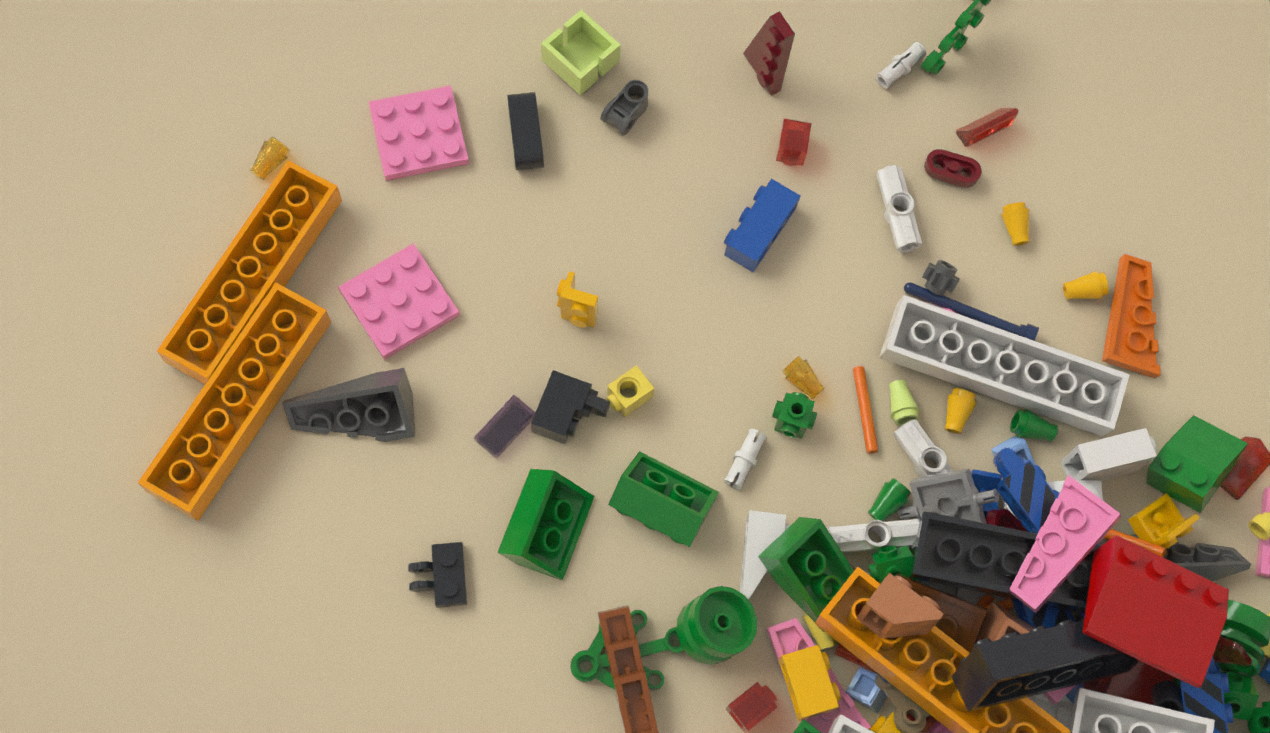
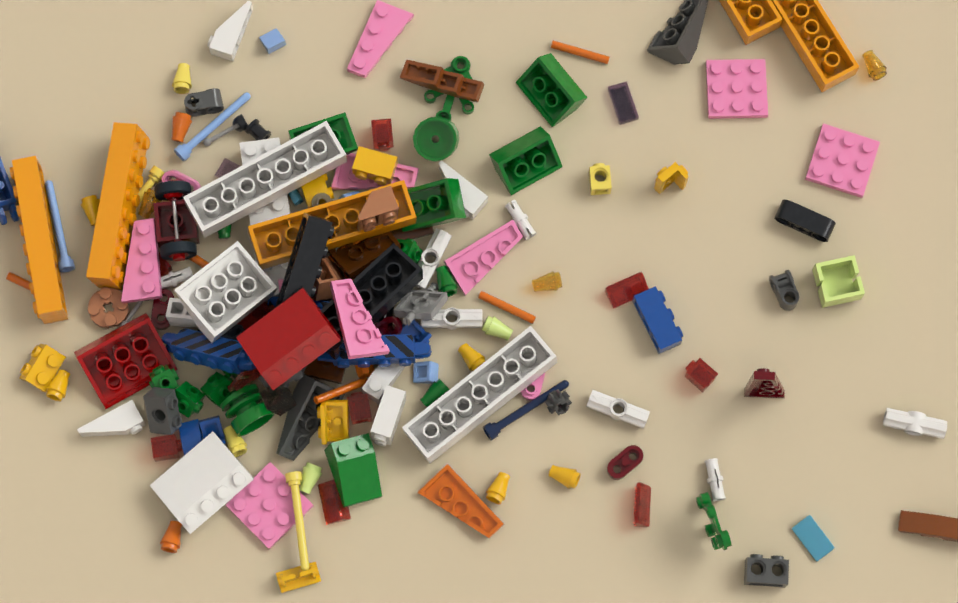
camera: 125 degrees right, 5 degrees up
(448, 575) = (556, 25): black hinge -> none
(468, 521) = (580, 52): none -> orange piece
(562, 403) = (615, 137): black hinge -> none
(746, 283) = (626, 289): none -> clear red slope
(794, 424) = (527, 266): green brick -> none
(830, 479) = (480, 257): none -> bright pink wing
(1125, 500) = (359, 408): none -> clear red brick
(1236, 512) = (310, 476): none -> yellowish green cone

